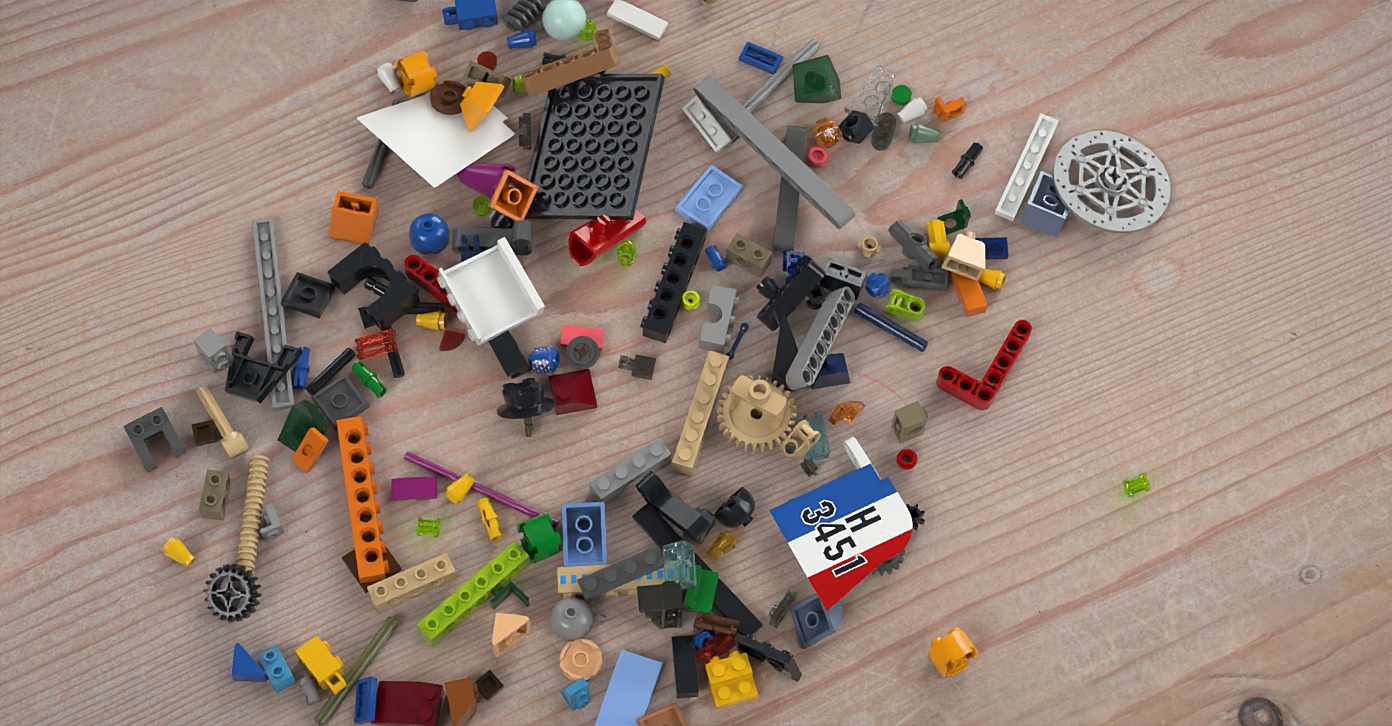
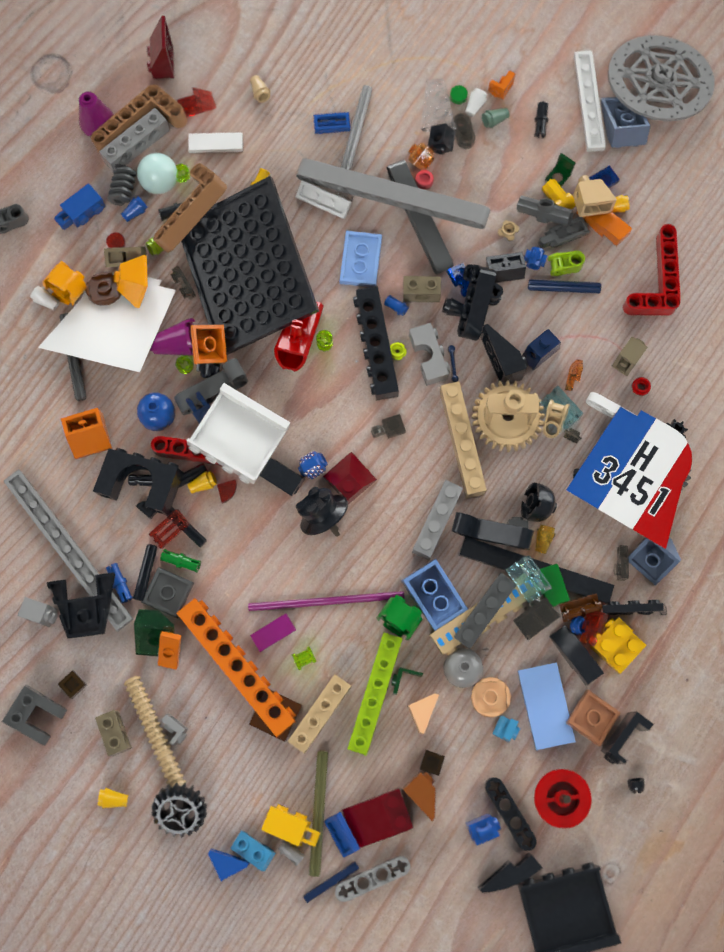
camera: 25 degrees left, 10 degrees up
(232, 441) = (100, 679): tan axle -> none
(308, 295) = (88, 518): black plate -> none
(458, 490) = (309, 613): yellow cone -> none
(490, 519) = (349, 622): yellow pin -> none
(571, 332) = (330, 429): coral tile -> none
(578, 343) = (345, 435): dark grey gear -> none
(816, 81) = (388, 118): clear green slope -> none
(820, 338) = (524, 328): light grey beam -> none

